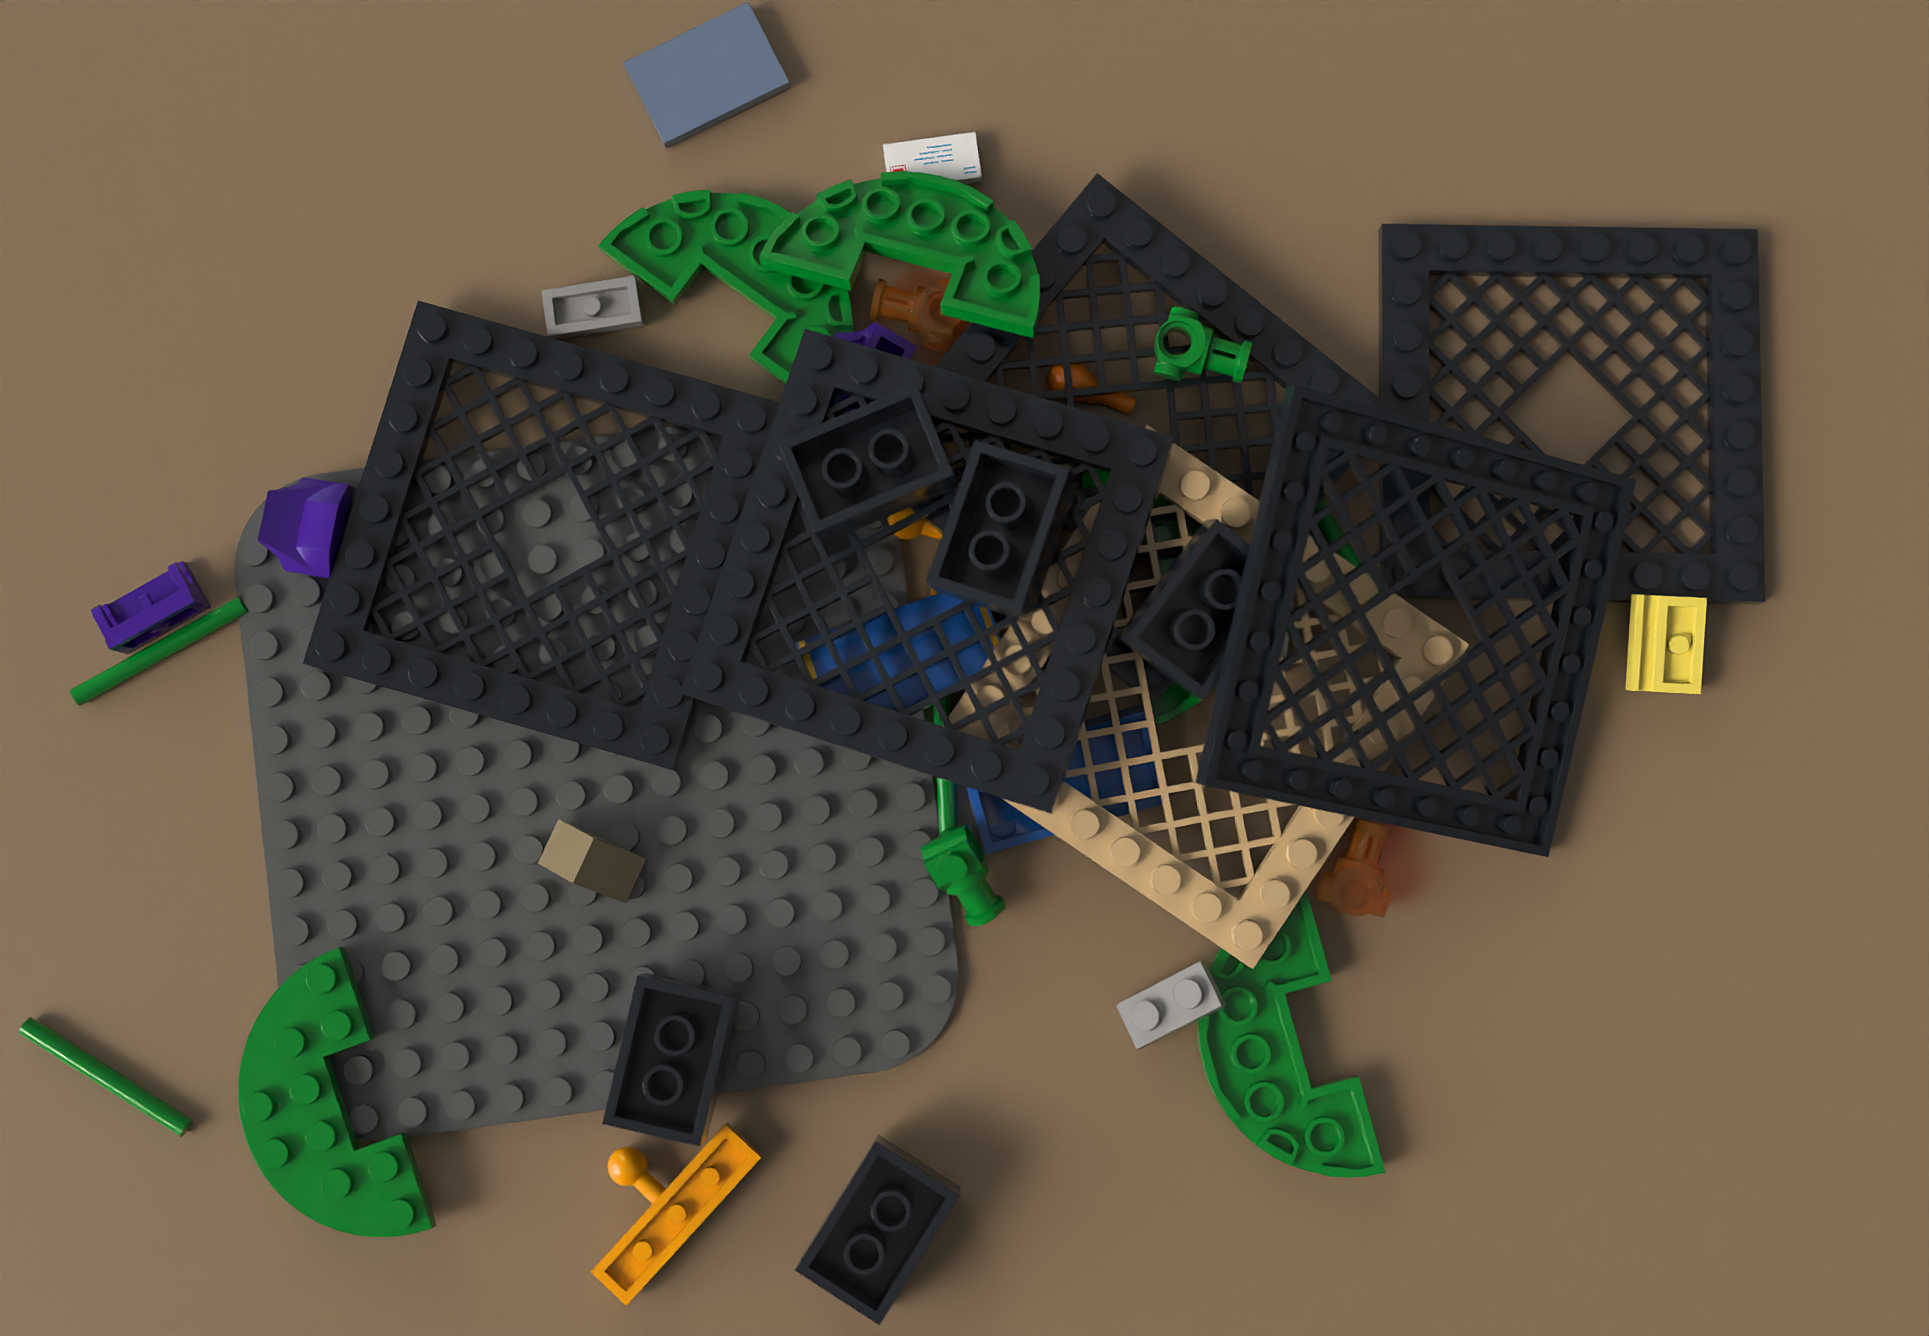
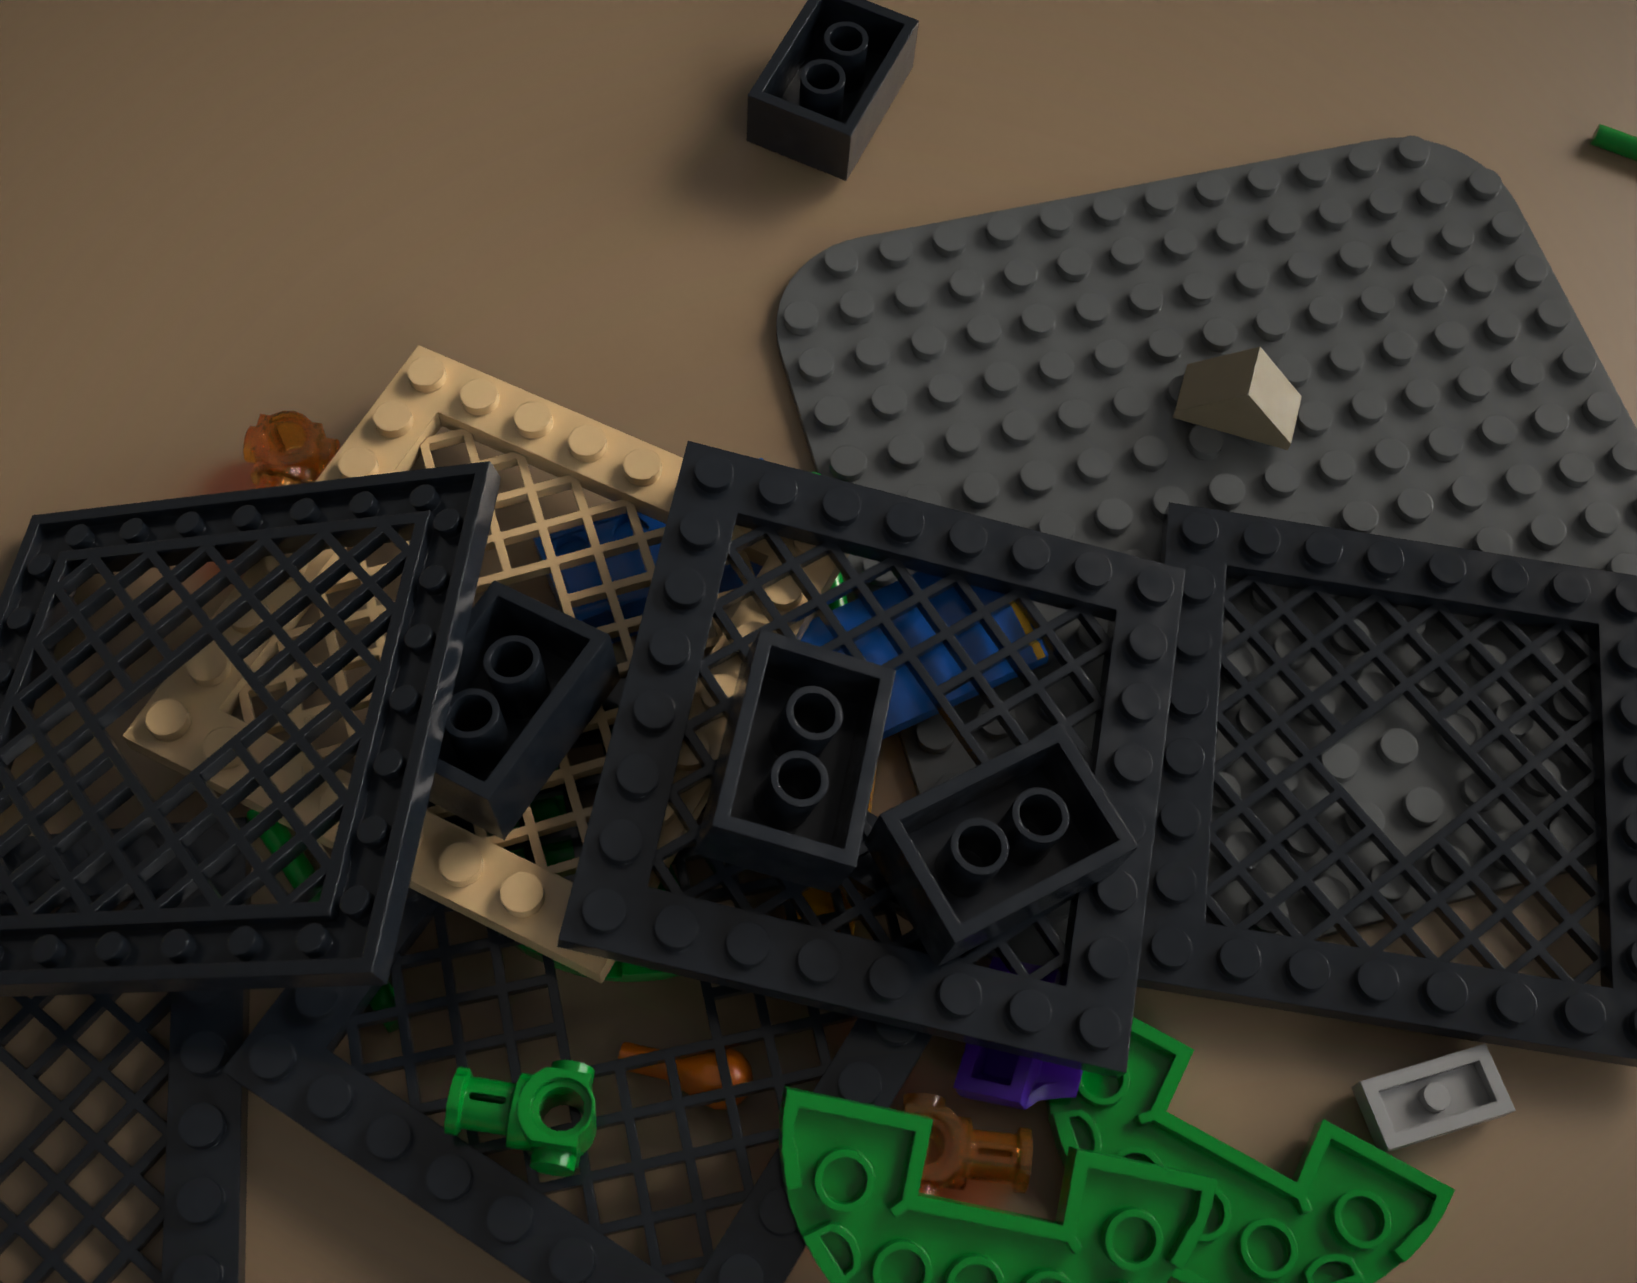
camera: 165 degrees right, 20 degrees down
(299, 1118) = (1478, 133): green plate -> none
(671, 1059) = (1097, 201): black brick -> none
(674, 1209) = (1057, 92): light orange plate -> none
(960, 869) = (793, 425): green connector -> none
(1170, 1005) = (517, 315): light grey plate -> none
(1259, 1066) = (405, 260): green plate -> none

